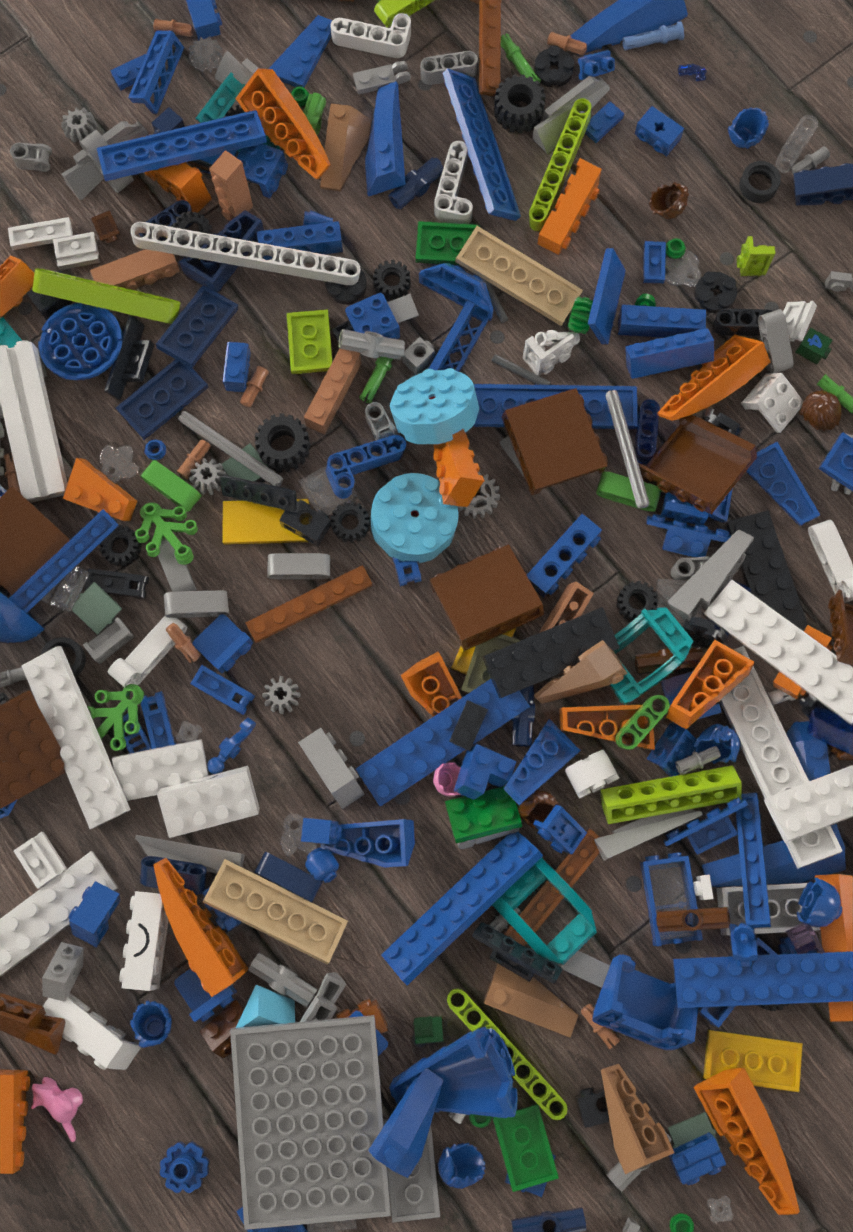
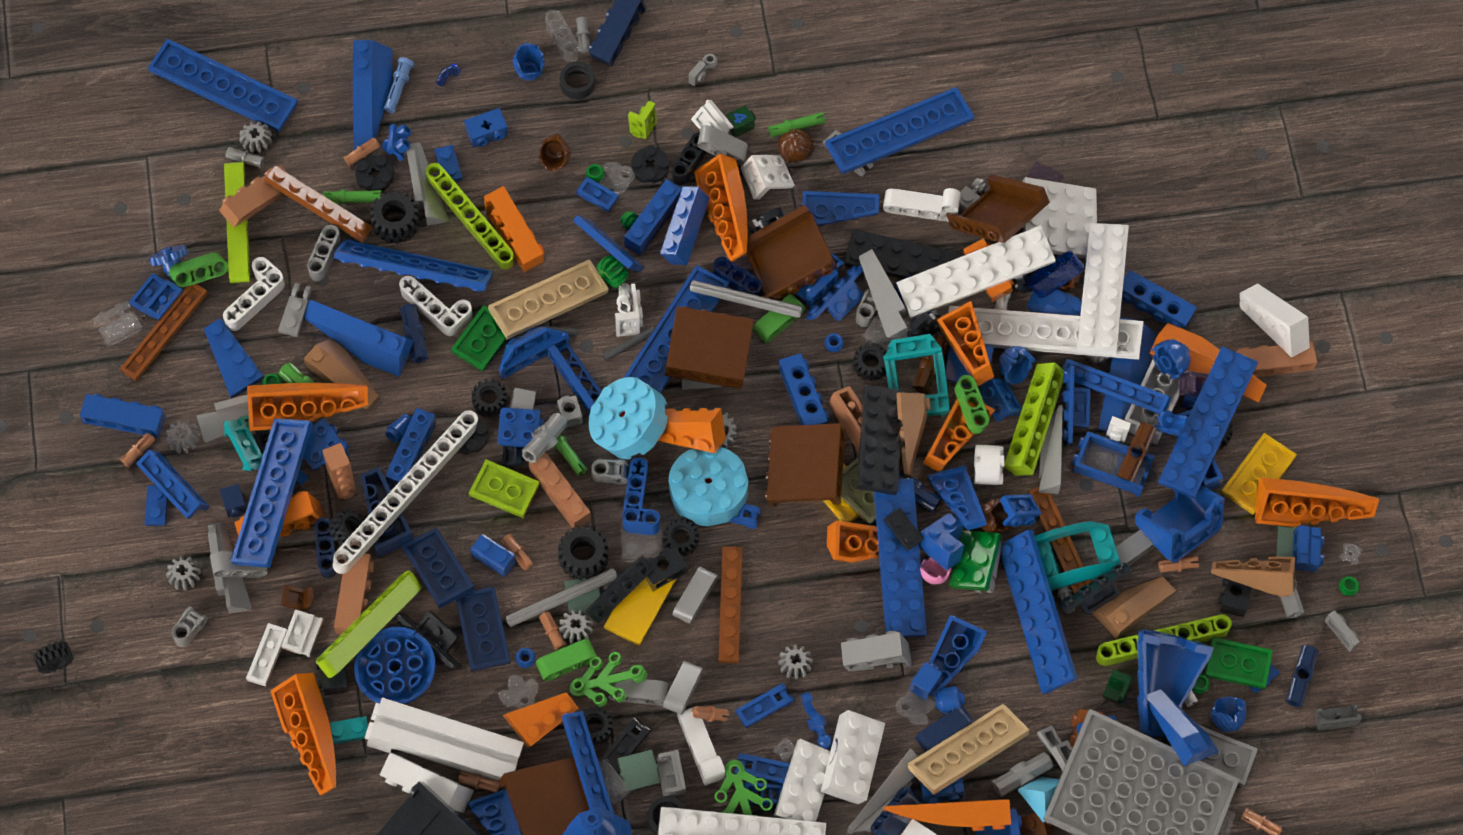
camera: 65 degrees left, 10 degrees down
(222, 643) = (727, 685): blue bracket -> none
(638, 551) = (834, 338): none -> blue plate
(697, 760) = (1019, 386): light grey axle -> none

